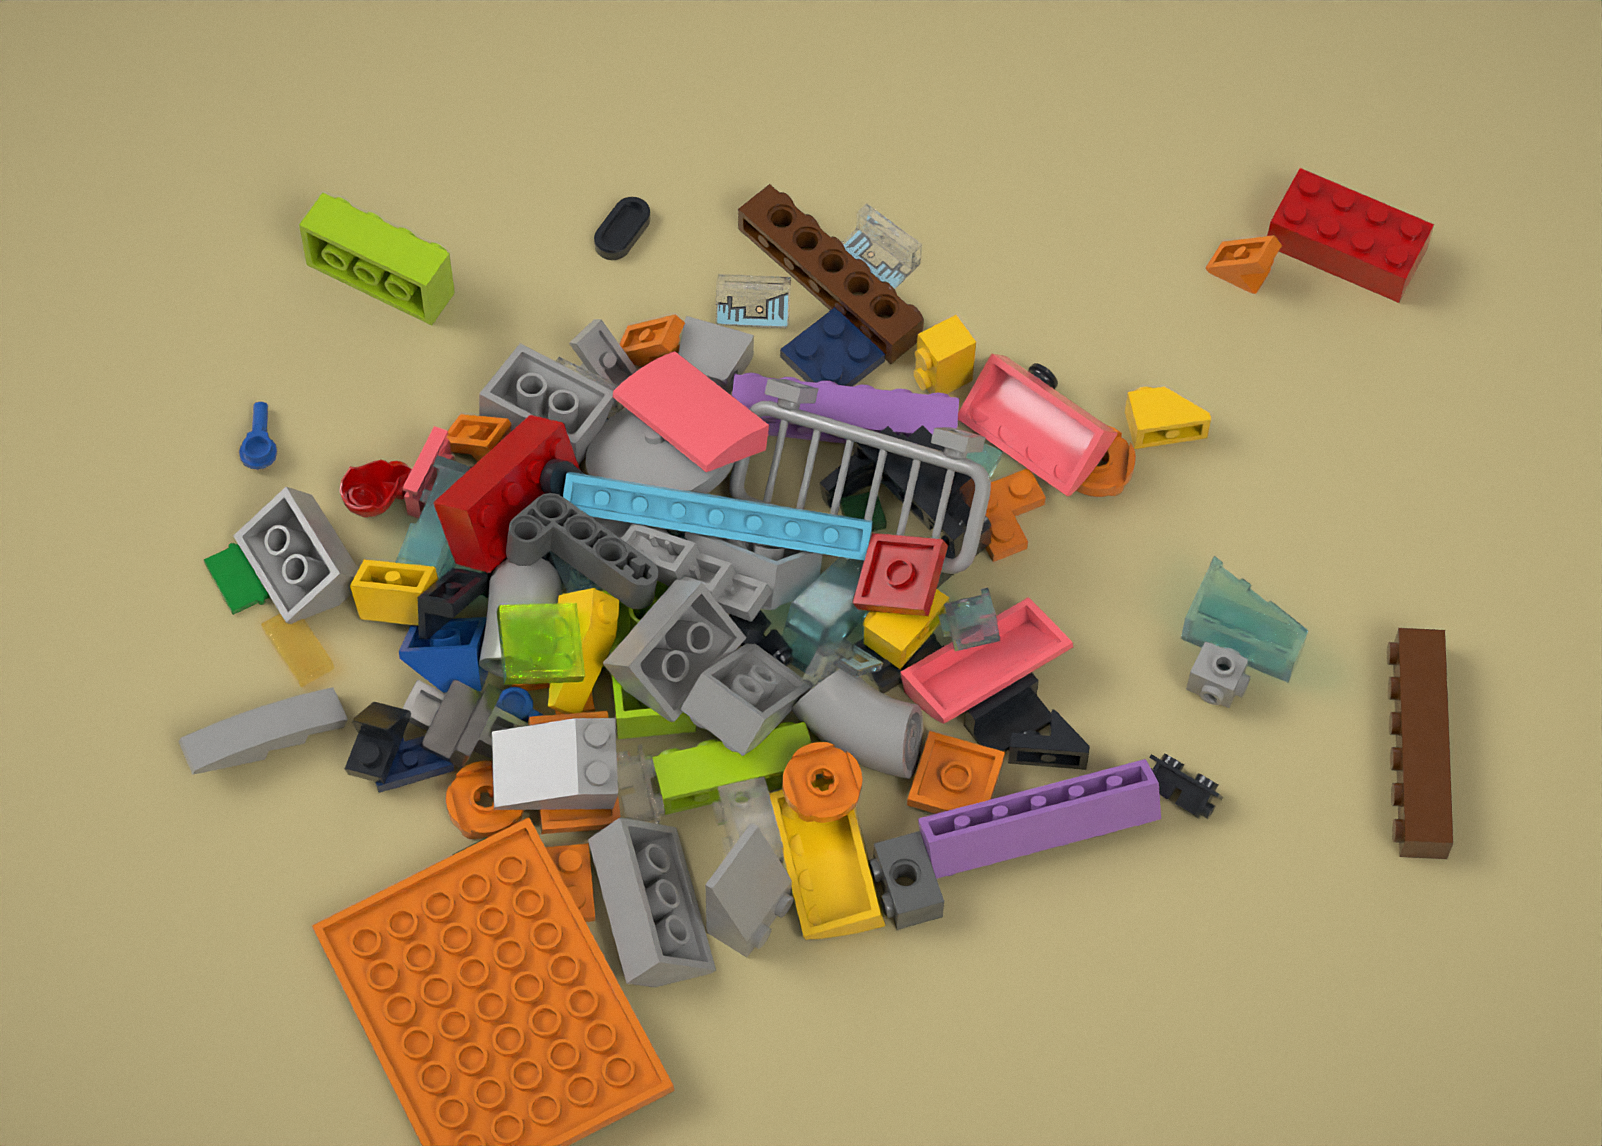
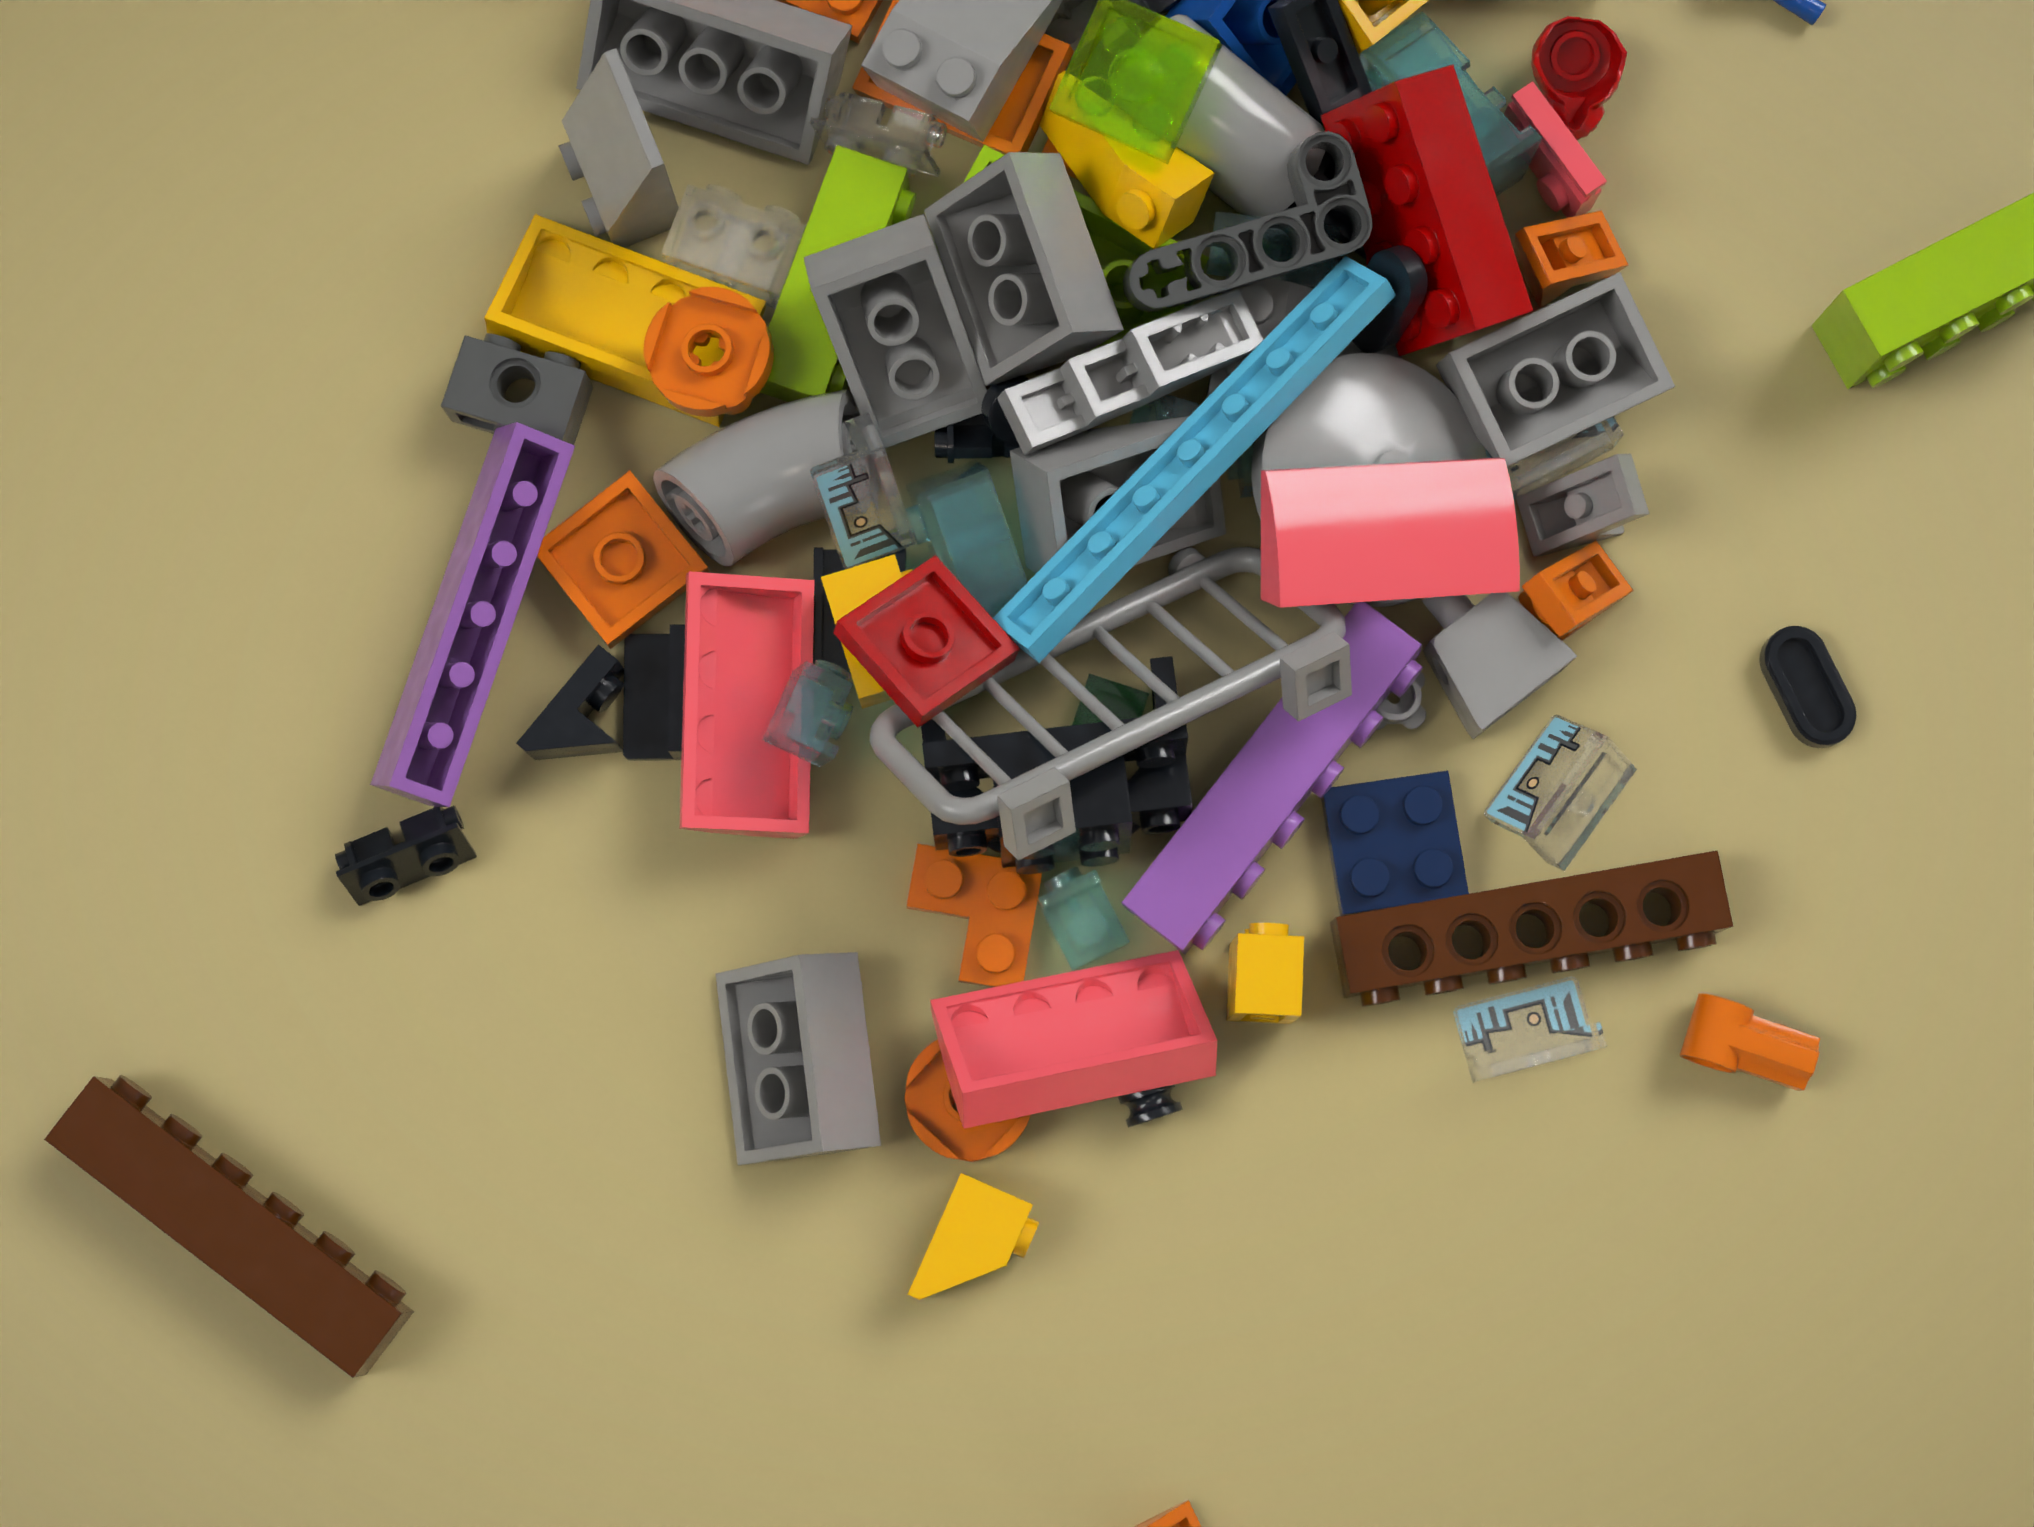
camera: 125 degrees right, 20 degrees up
(818, 164) = (1732, 1039): none -> orange piece
(1140, 542) = (798, 1058): none -> light grey slope
(1218, 675) = (538, 1014): light grey brick -> none
(1238, 618) = (564, 1100): clear light blue wedge -> none

